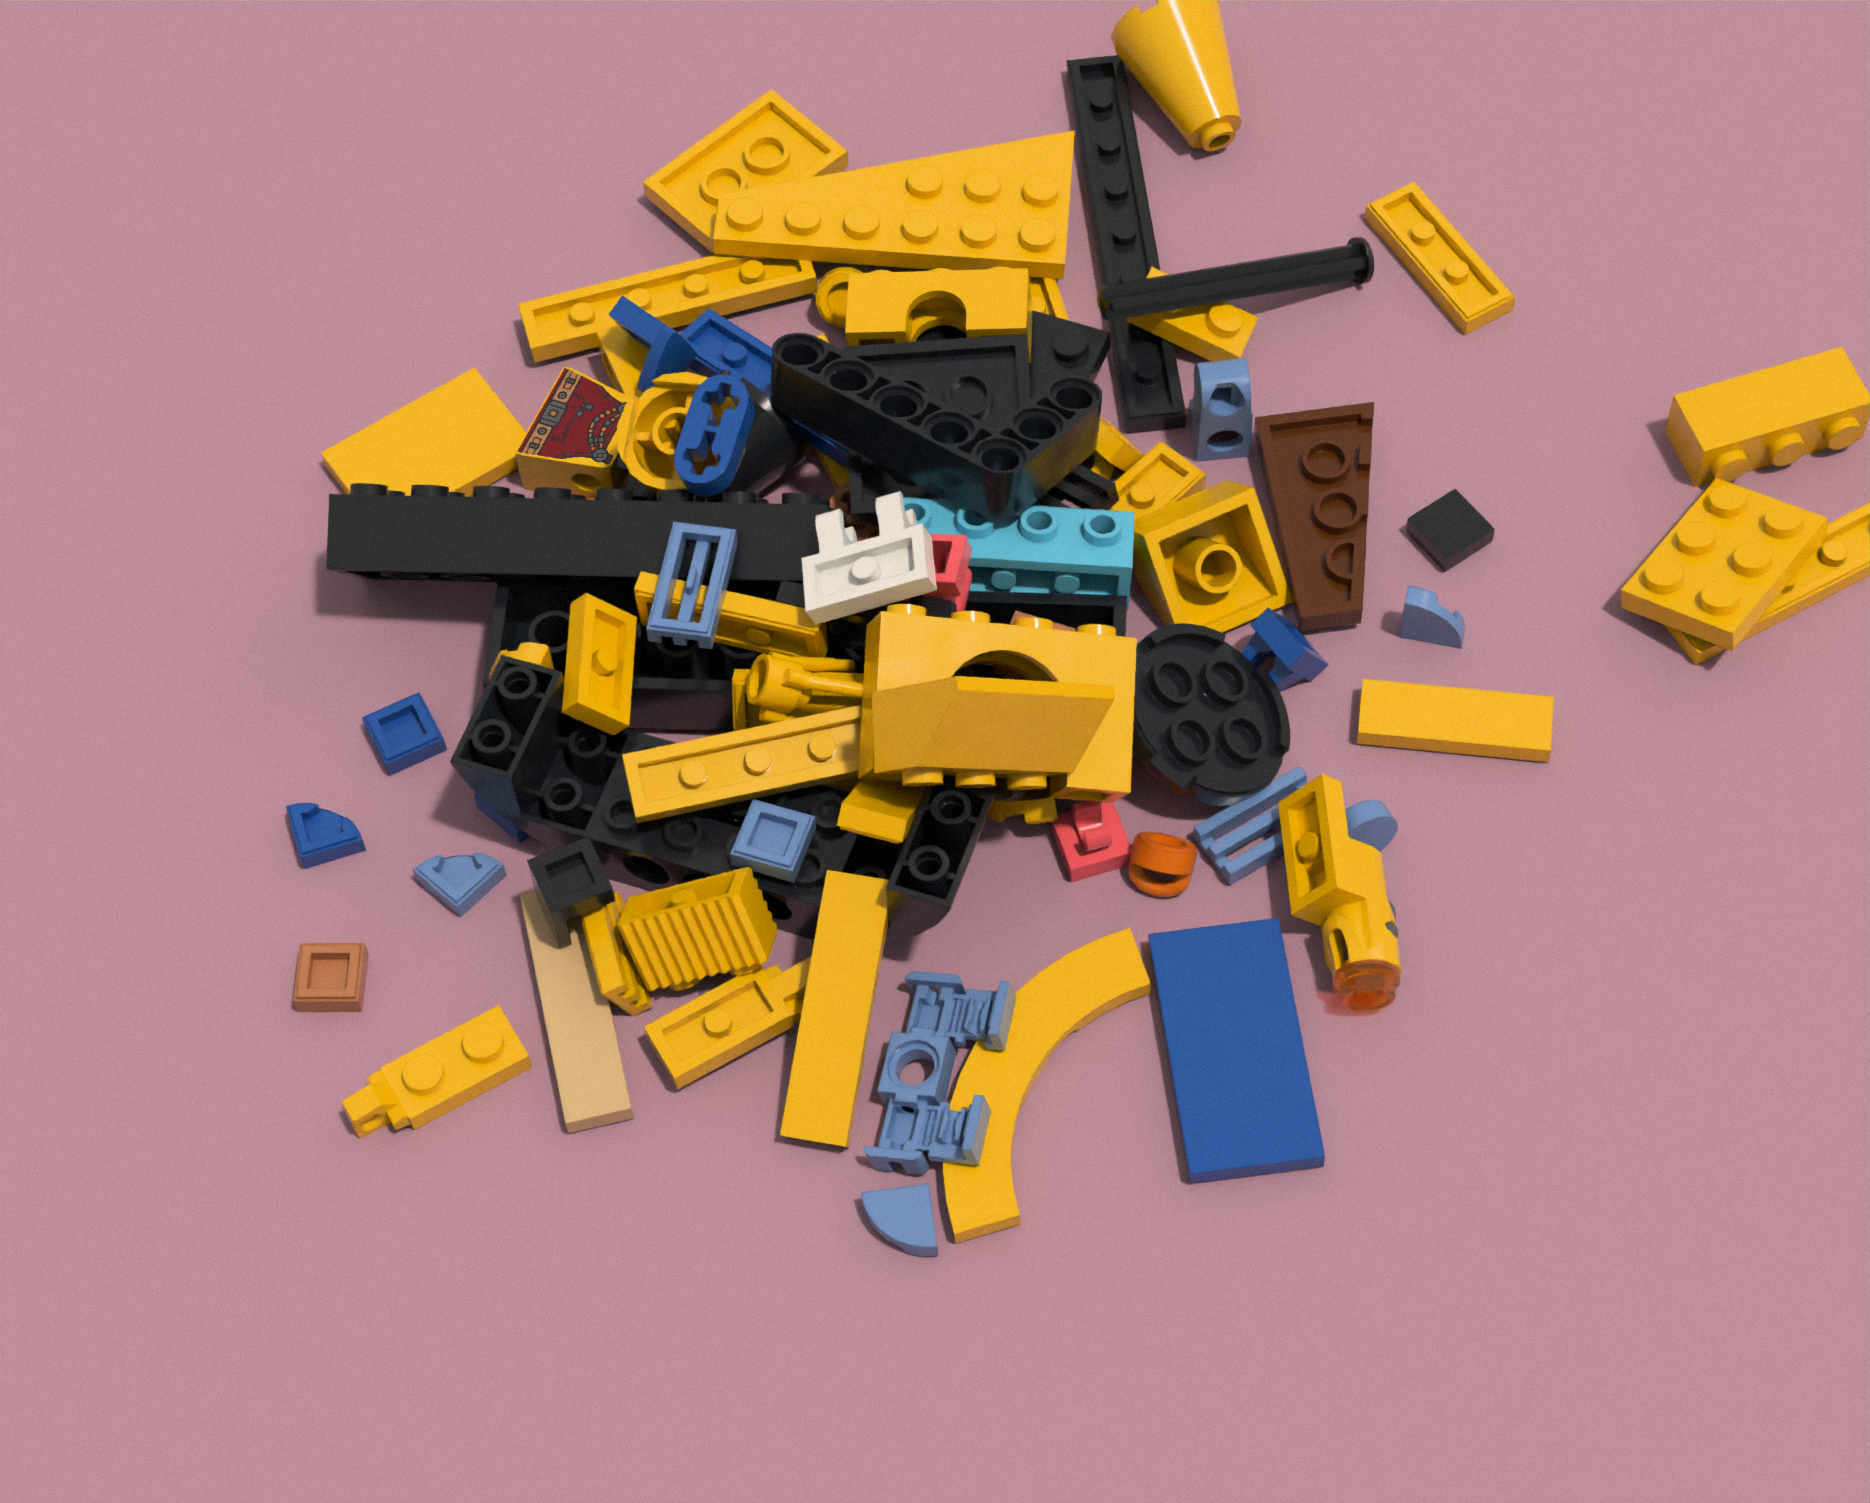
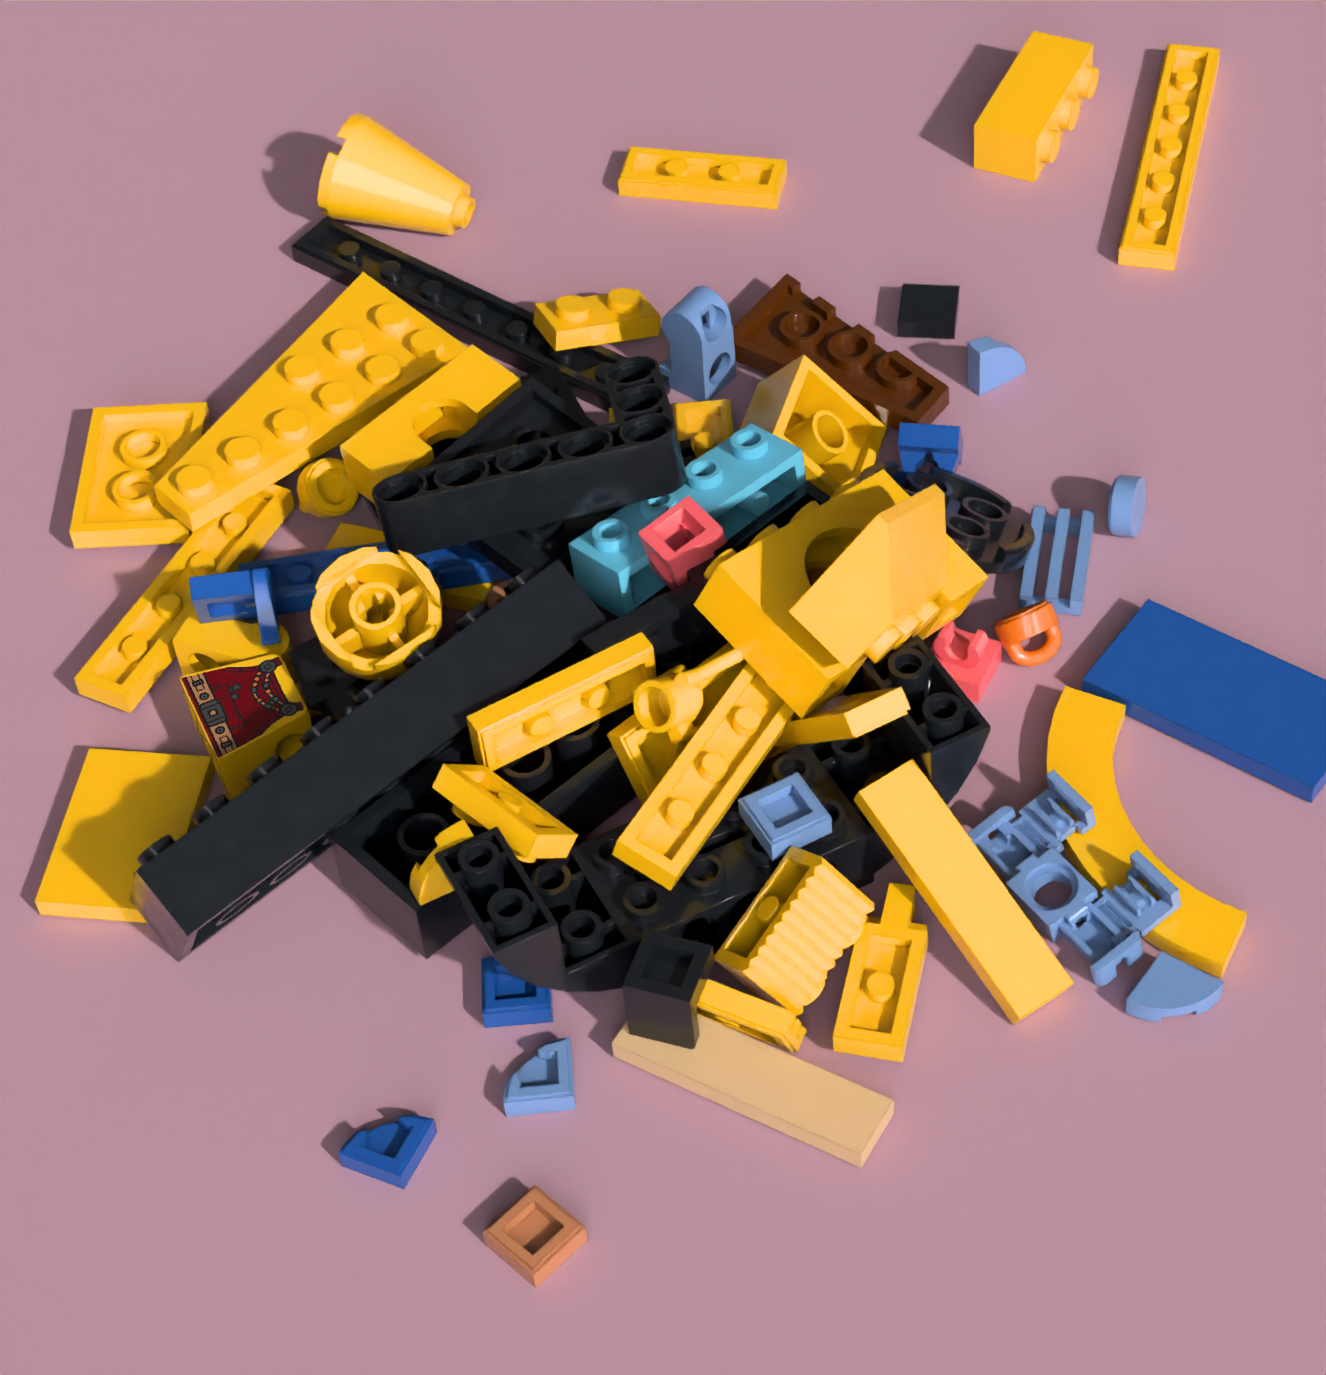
camera: 45 degrees left, 10 degrees down
(404, 733) = (363, 1027): blue tile -> none
(439, 1075) = (716, 1217): yellow hinge -> none
(684, 627) = (550, 721): medium blue tile -> none
(726, 439) = (431, 569): blue beam -> none
(867, 573) = (656, 567): white plate -> none
(1238, 281) = (655, 214): black axle -> none
(1344, 892) = (1174, 544): yellow plate -> none
(1455, 720) = (1084, 408): yellow tile -> none
(1724, 563) = (1125, 195): yellow plate -> none

